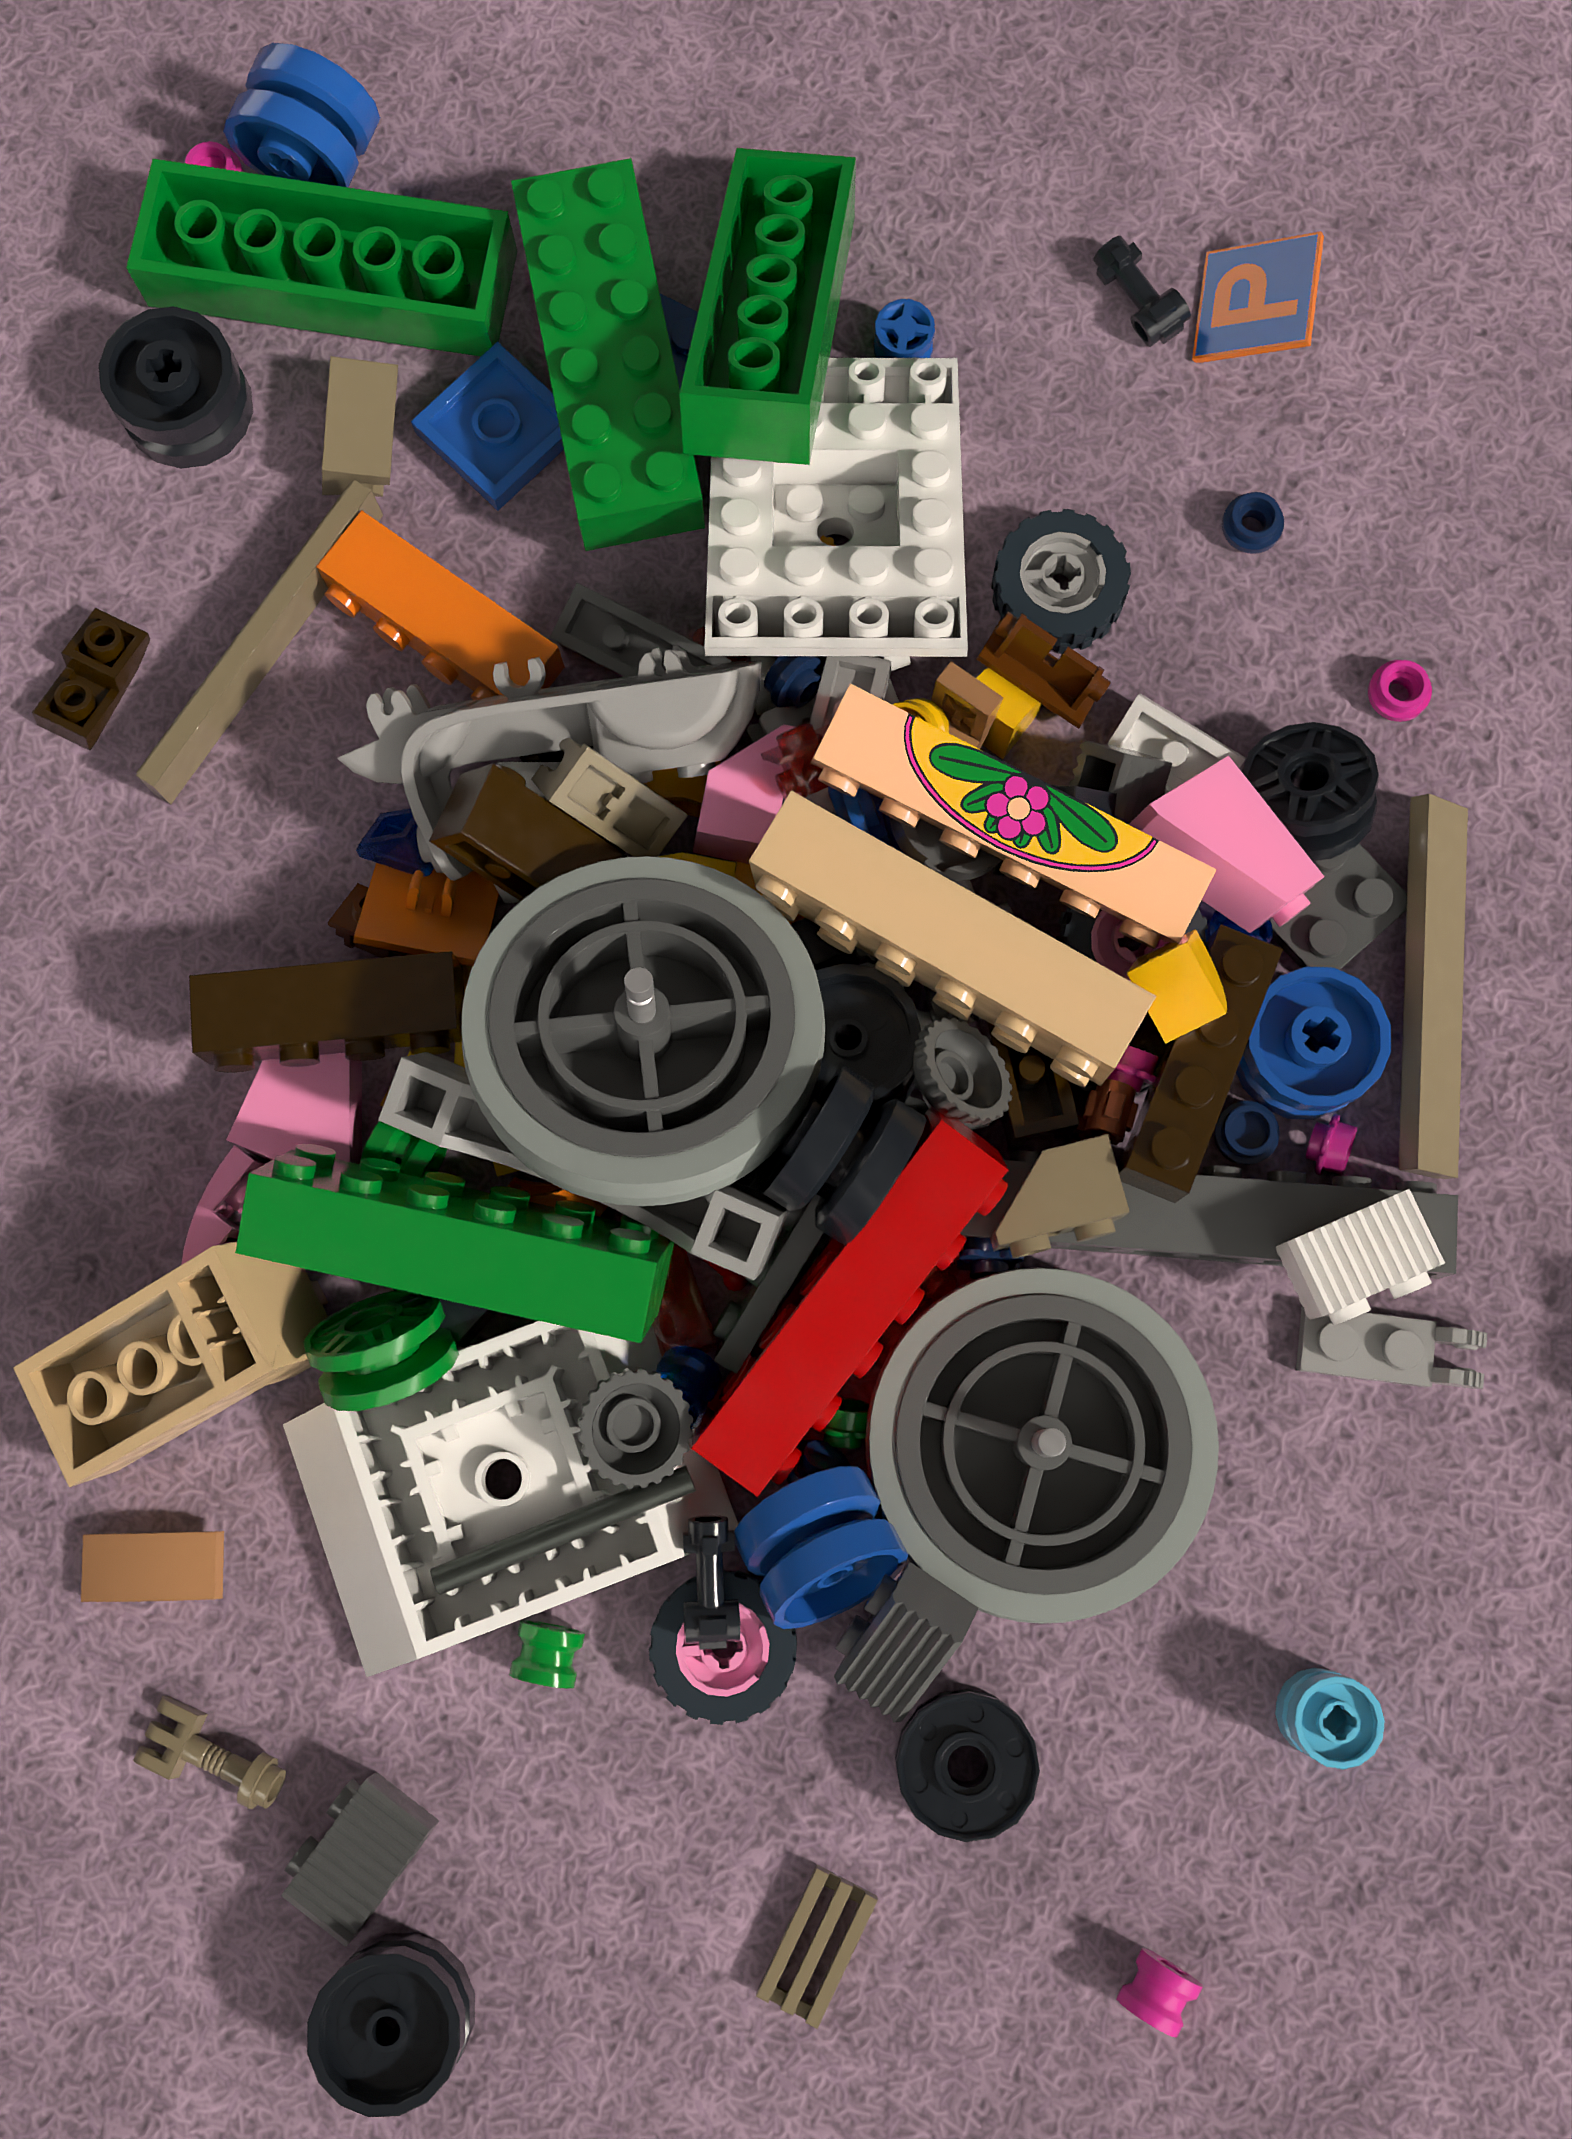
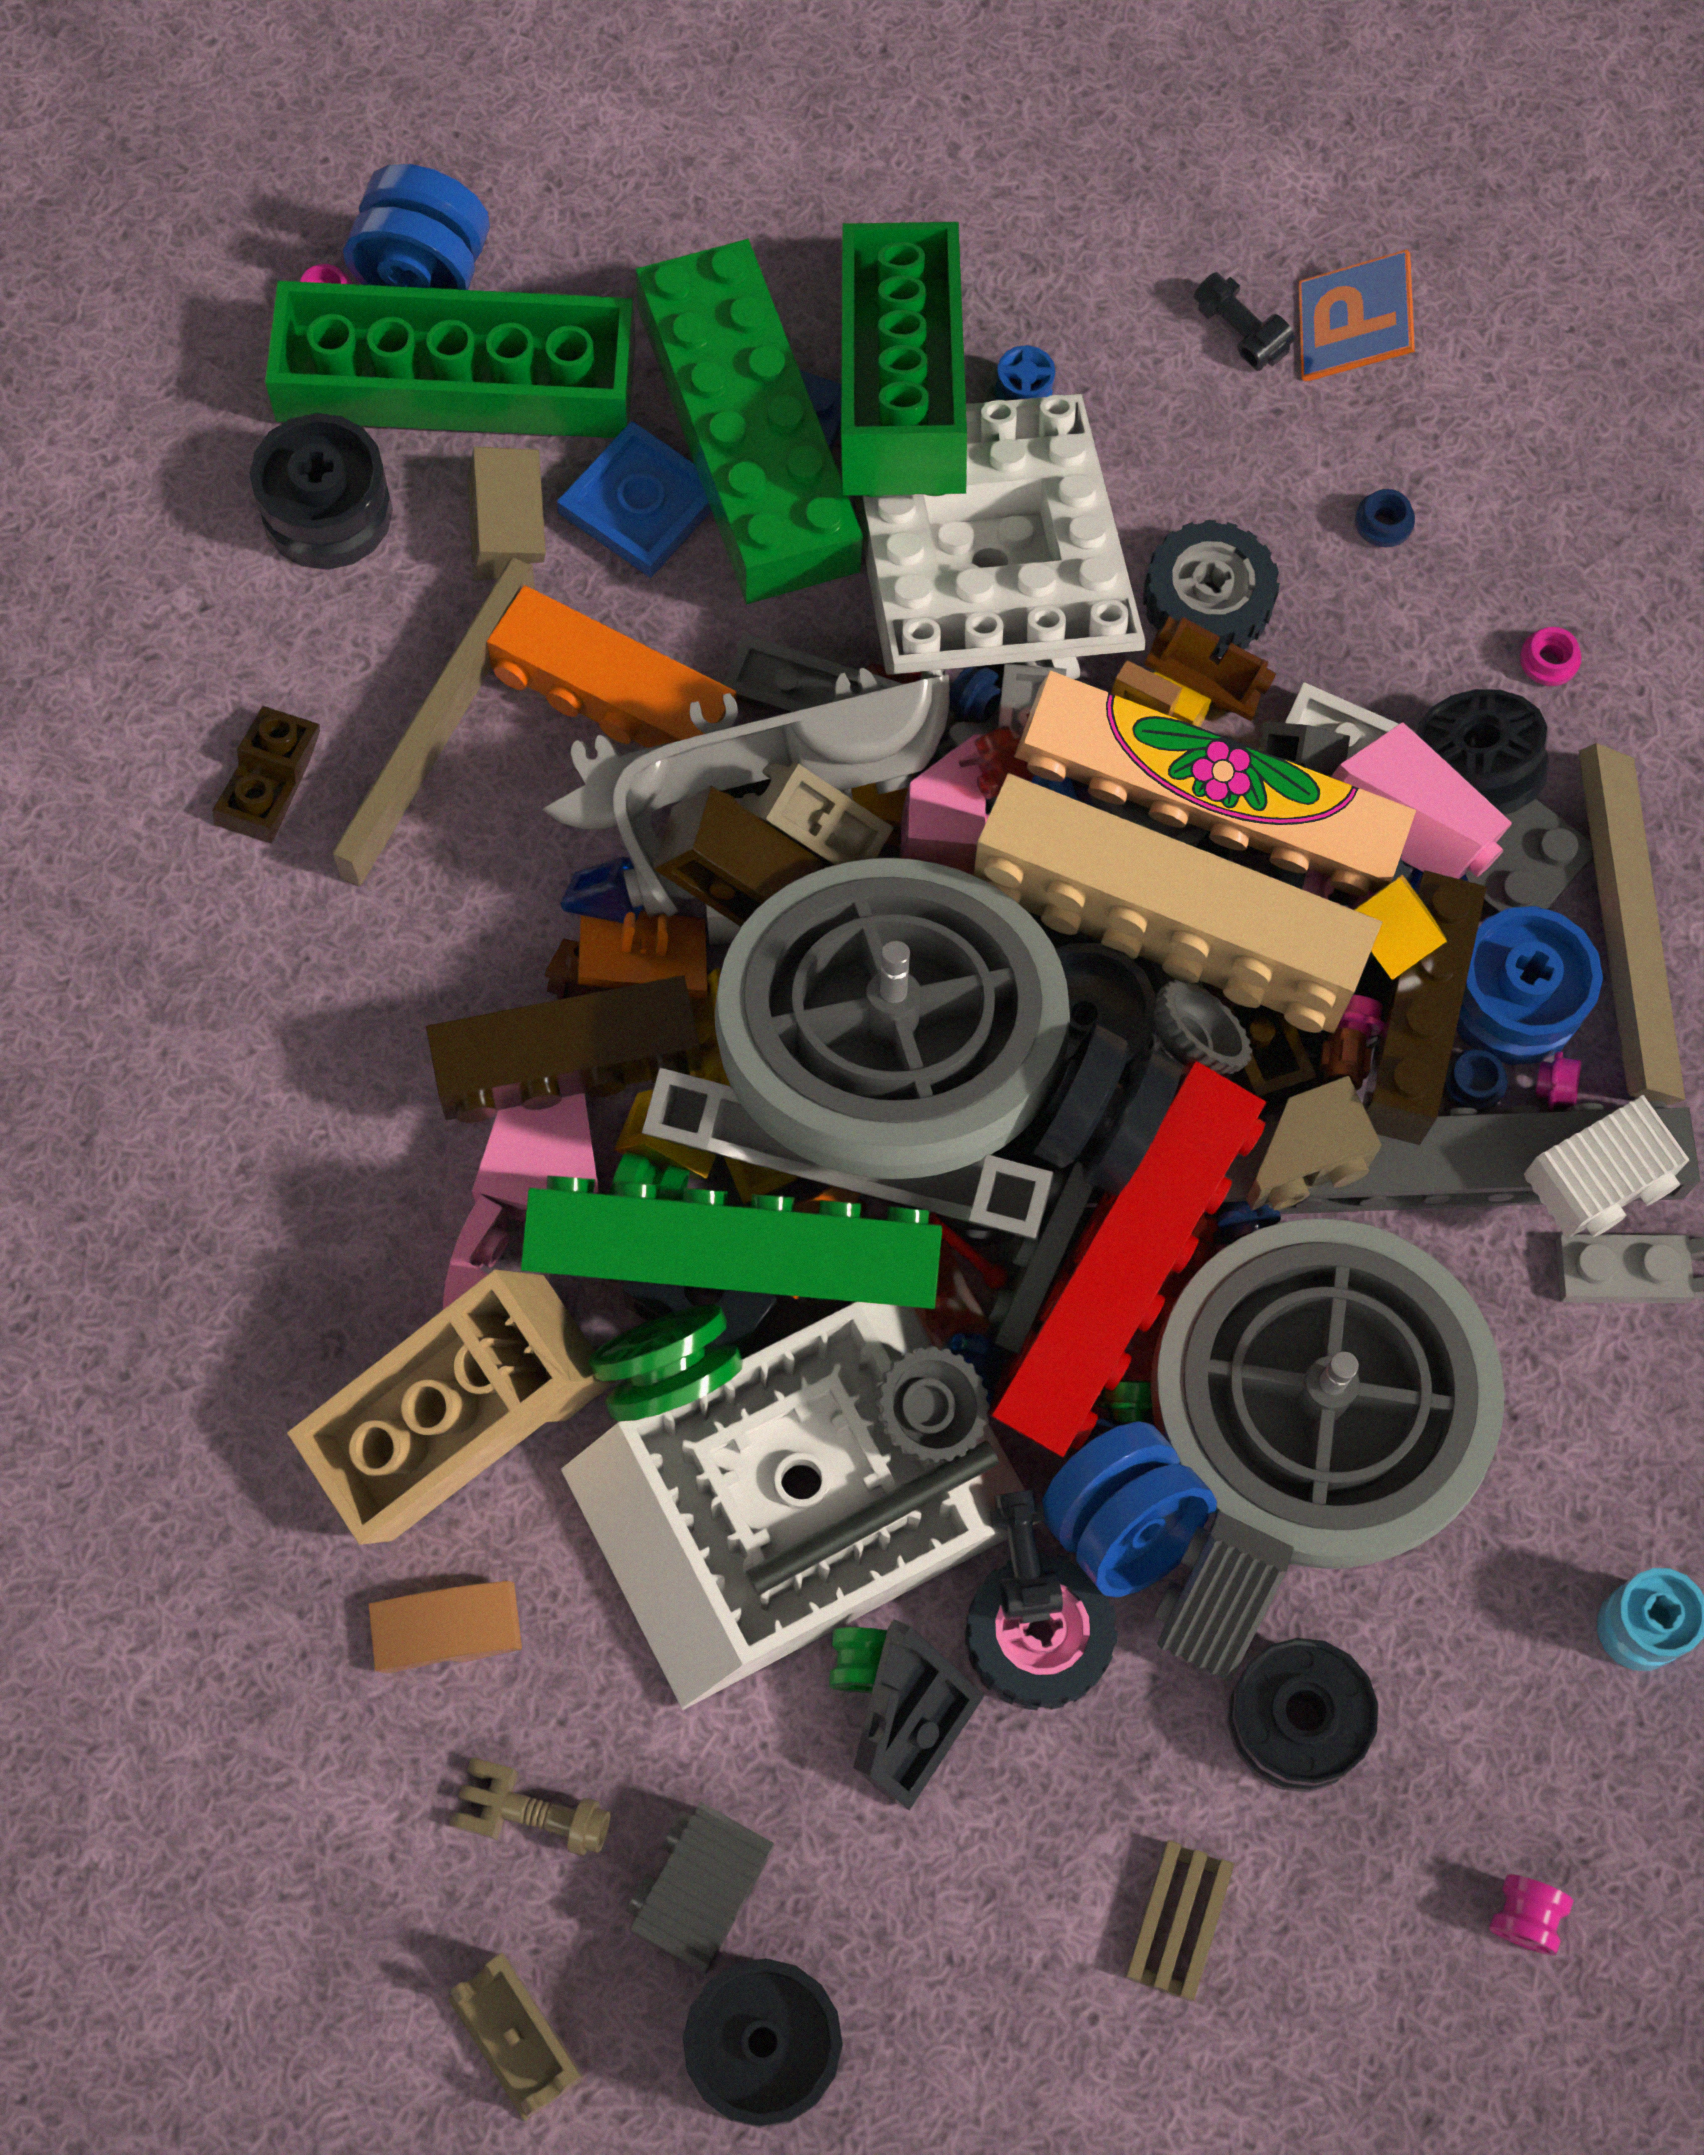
camera: 15 degrees left, 10 degrees down
(170, 1974) = (515, 2037): none -> dark tan hinge
(583, 1718) = (912, 1715): none -> black wing

